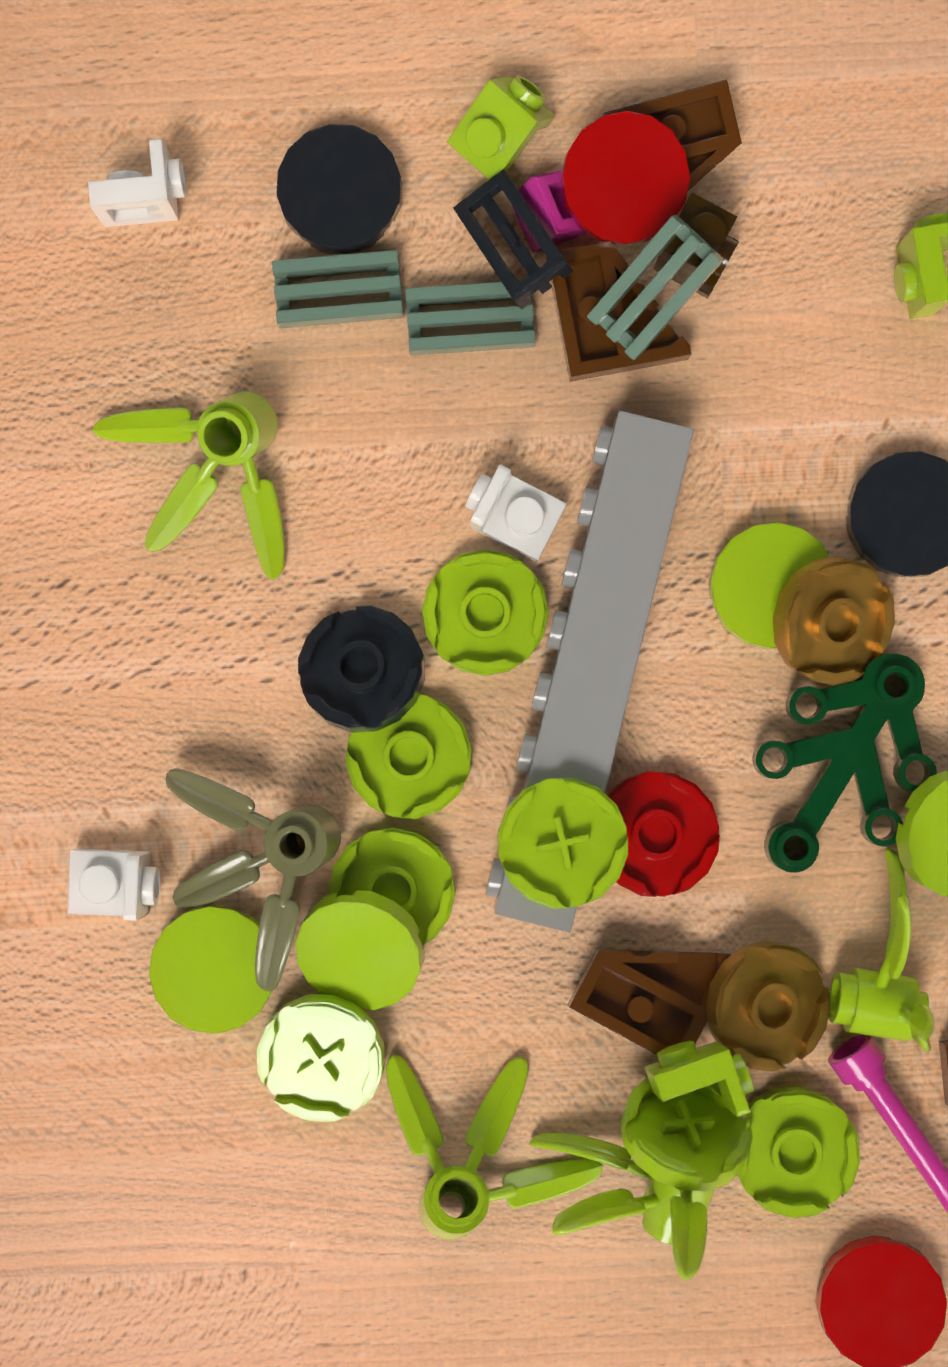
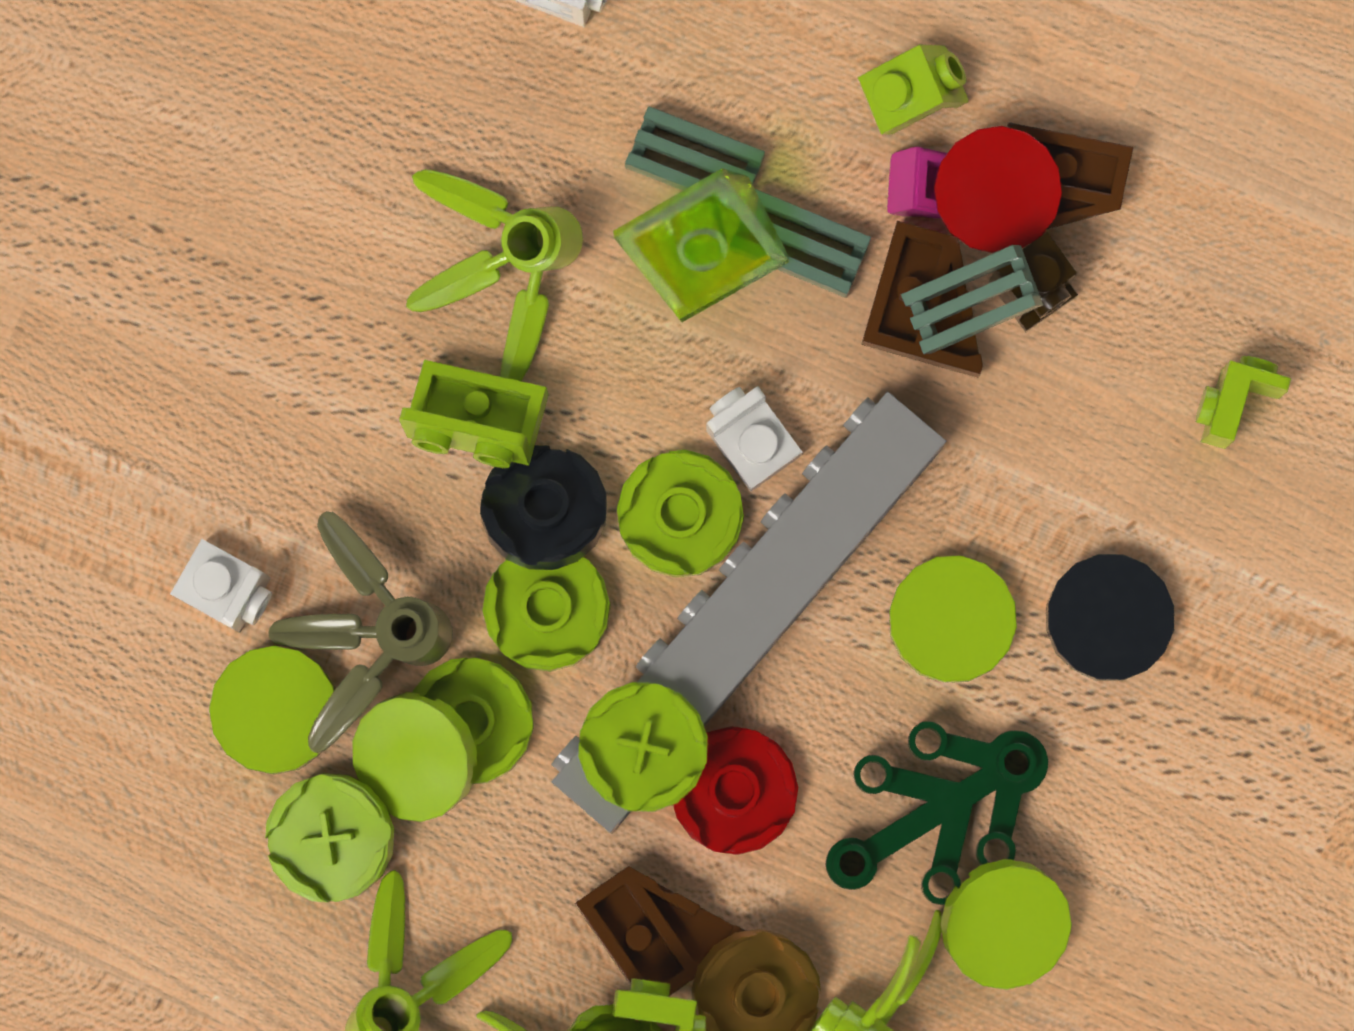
camera: 30 degrees right, 5 degrees down
(257, 616) = (474, 414): none -> lime bracket
(339, 188) = (741, 71): black tile -> none
(385, 358) = (704, 243): none -> clear neon green slope
(538, 277) = (877, 238): black tile -> none
(833, 620) = (989, 675): pearl gold tile -> none

